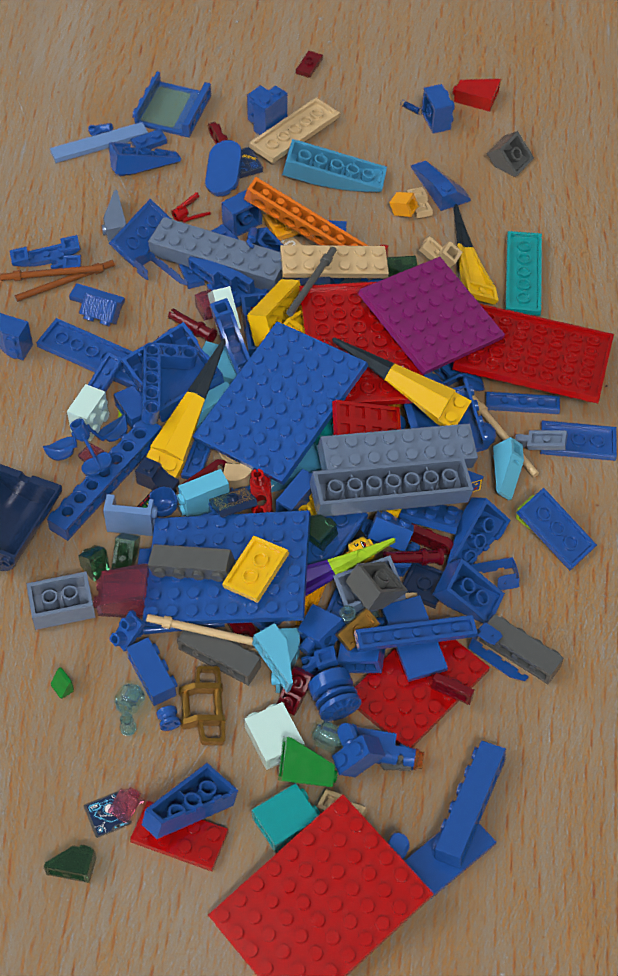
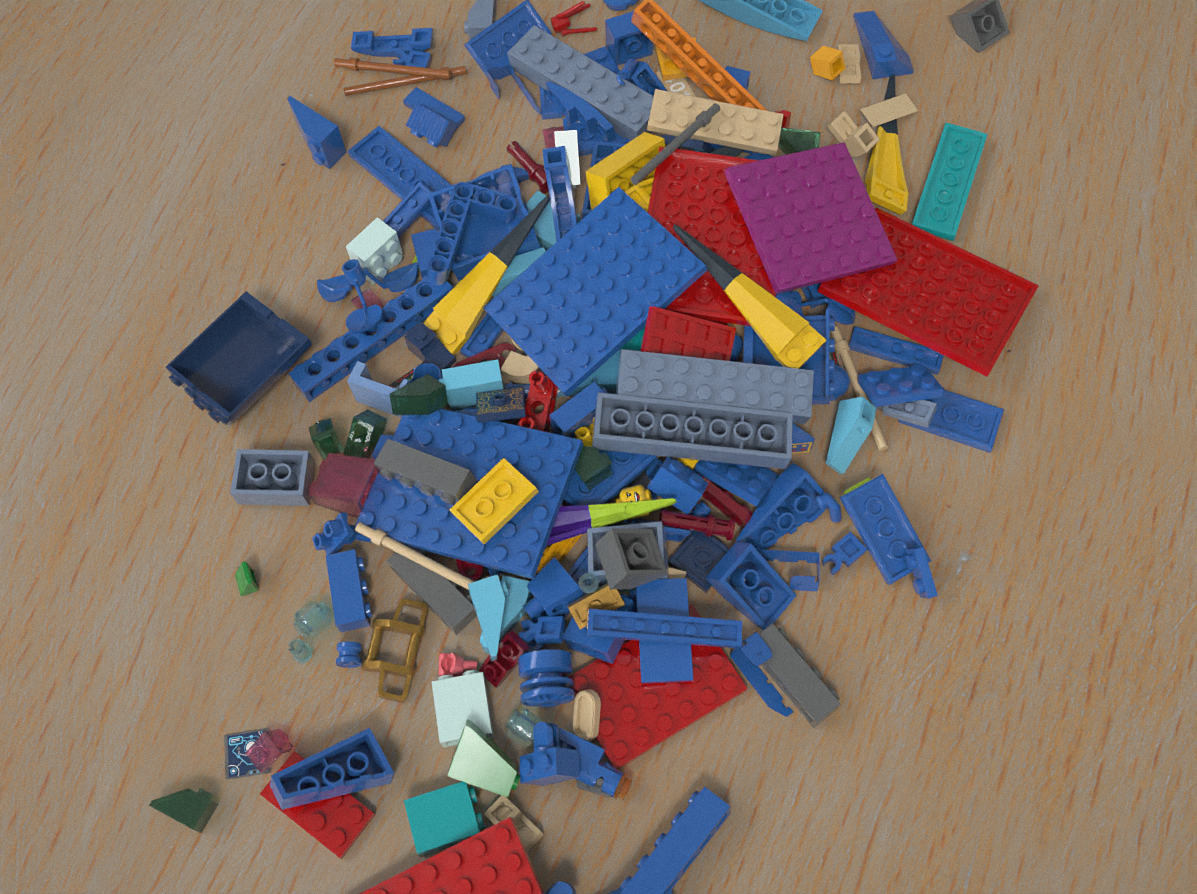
camera: 20 degrees right, 10 degrees up
(166, 510) = (419, 397): none -> clear green slope
(256, 704) = (454, 664): none -> coral piece
(373, 712) = (586, 714): none -> tan tile
(453, 688) = (690, 708): dark red plate -> none
(461, 230) = (889, 110): none -> tan sticker
(512, 521) = (833, 506): none -> blue arm
(531, 552) = (845, 551): none -> blue plate
(534, 424) = (900, 385): none -> blue plate
(593, 552) = (918, 563): none -> blue plate

